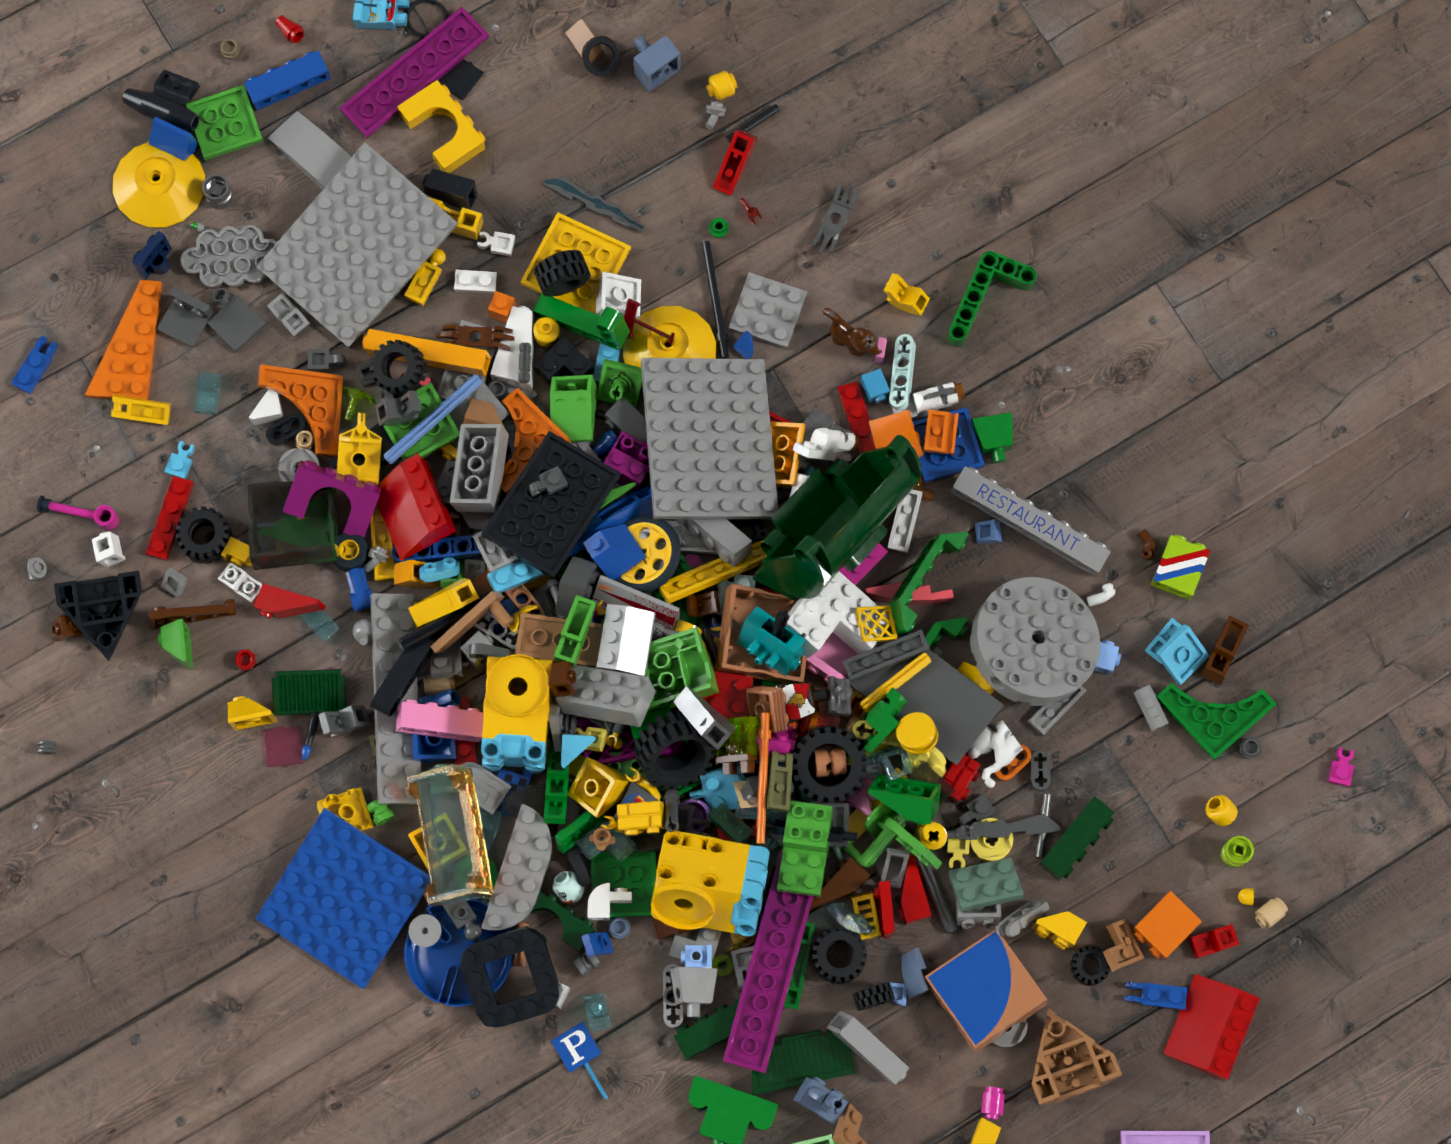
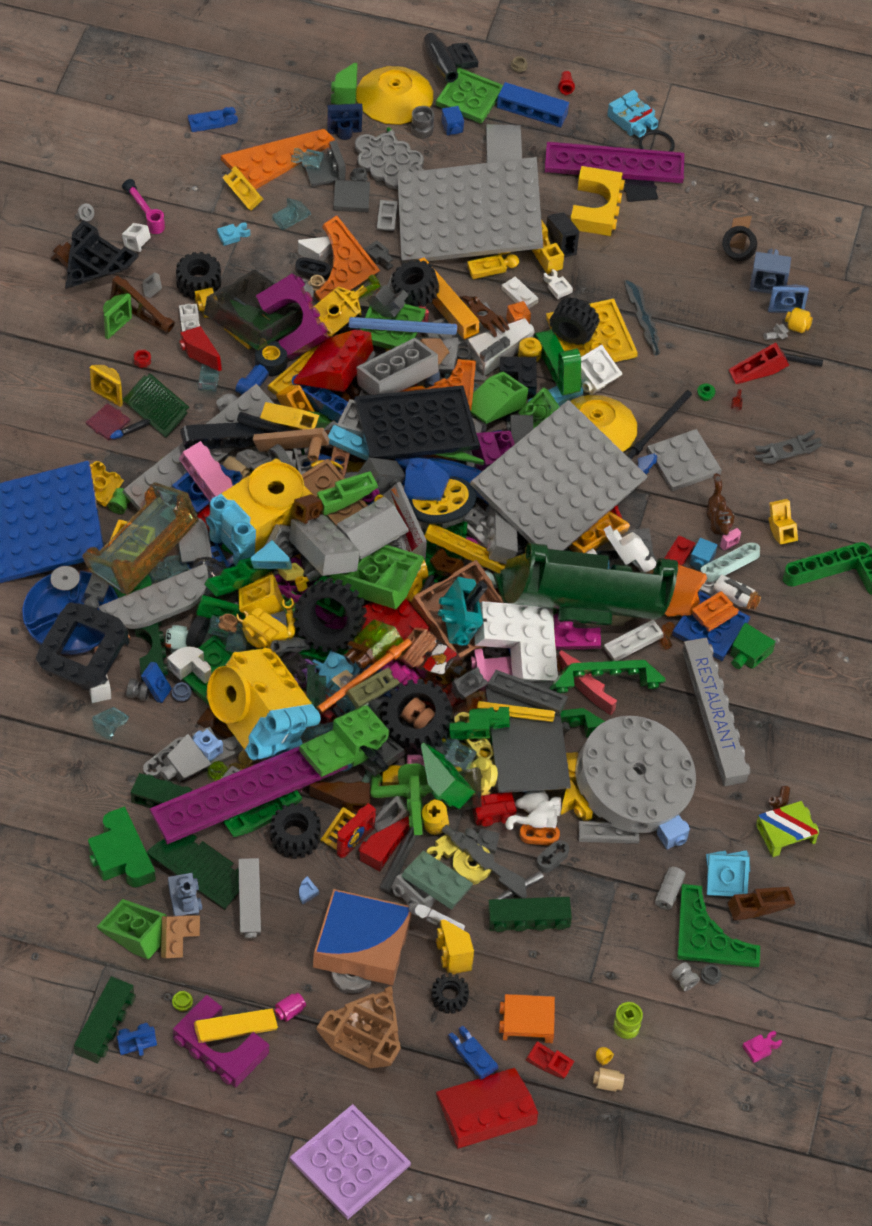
camera: 45 degrees right, 20 degrees down
(120, 224) = (345, 86): none -> bright green slope
(166, 323) = (309, 159): none -> clear light blue plate
(169, 517) = (168, 262): red plate -> none
(172, 139) = (428, 74): blue slope -> none
(239, 164) = (452, 120): none -> blue brick
(344, 721) = (156, 437): dark grey brick -> none
(377, 554) = (285, 372): light grey plate -> none
(439, 570) = (304, 402): medium azure plate -> none
(550, 481) = (429, 408): dark grey plate -> none
(577, 1049) = (74, 732): blue piece -> none
(630, 319) = (590, 380): dark red piece -> none
(694, 69) = (788, 297): none -> medium blue slope
(704, 717) = (367, 606): slope -> none
(853, 922) = (326, 814): clear light blue slope -> none
(873, 996) = (288, 871): black tyre -> none
(890, 622) = (551, 659): yellow window -> none
(914, 981) = (325, 889): sand blue slope -> none
(917, 733) = (493, 746): yellow head -> none
(988, 532) = (682, 698): medium blue slope -> none
(1018, 708) = (574, 800): none -> yellow slope
(1108, 592) = (719, 800): white arm -> none
(1126, 948) = (484, 1003): medium nougat plate -> none
(1221, 810) = (646, 986): yellow head -> none
(1236, 770) = (685, 976): none -> light grey wheel

